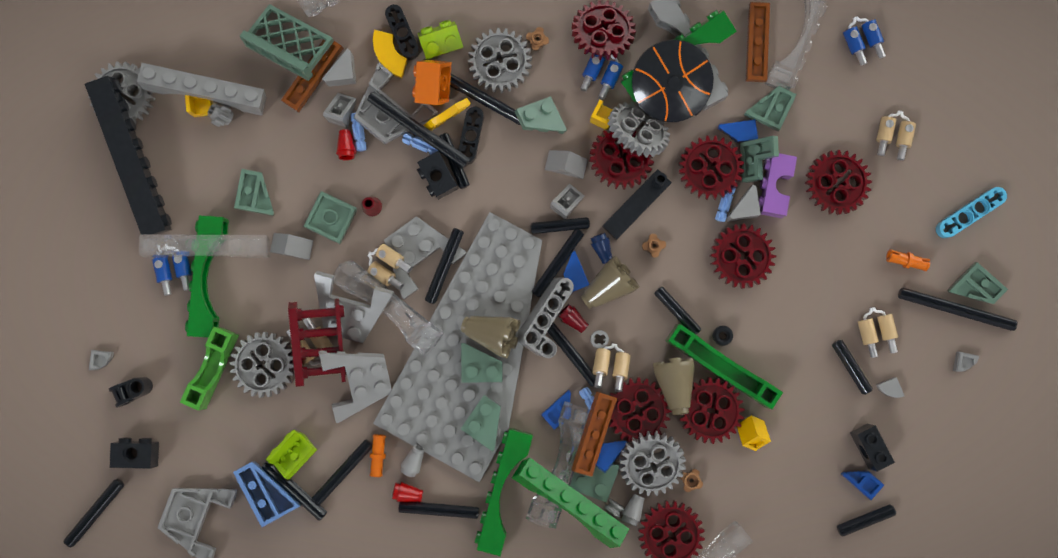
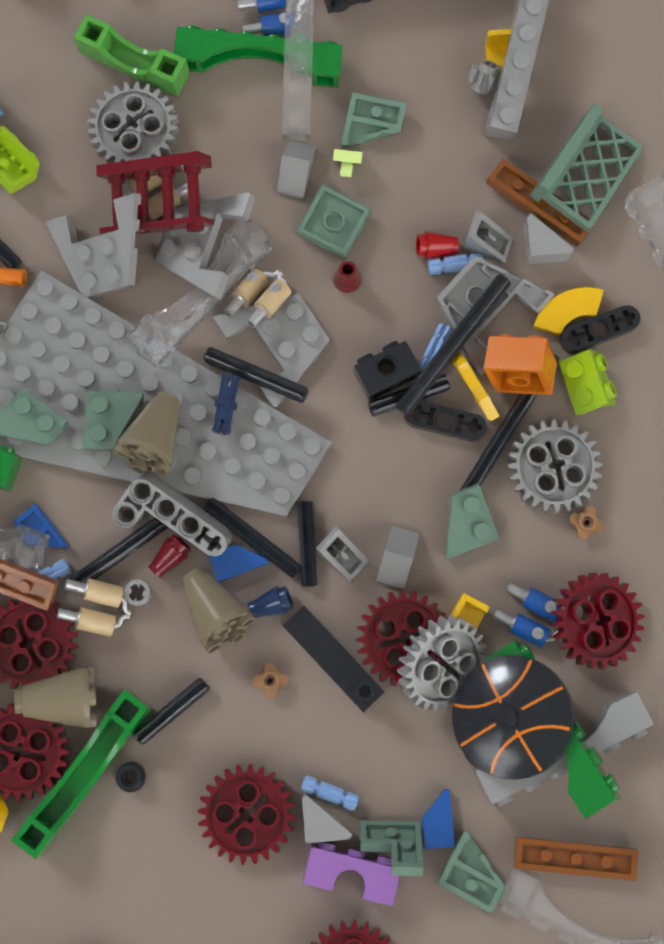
camera: 90 degrees right, 5 degrees down
(285, 209) = (347, 158): none -> yellowish green tile
(467, 284) = (225, 404): none -> dark blue pin
(726, 157) = (367, 750): dark red gear -> none

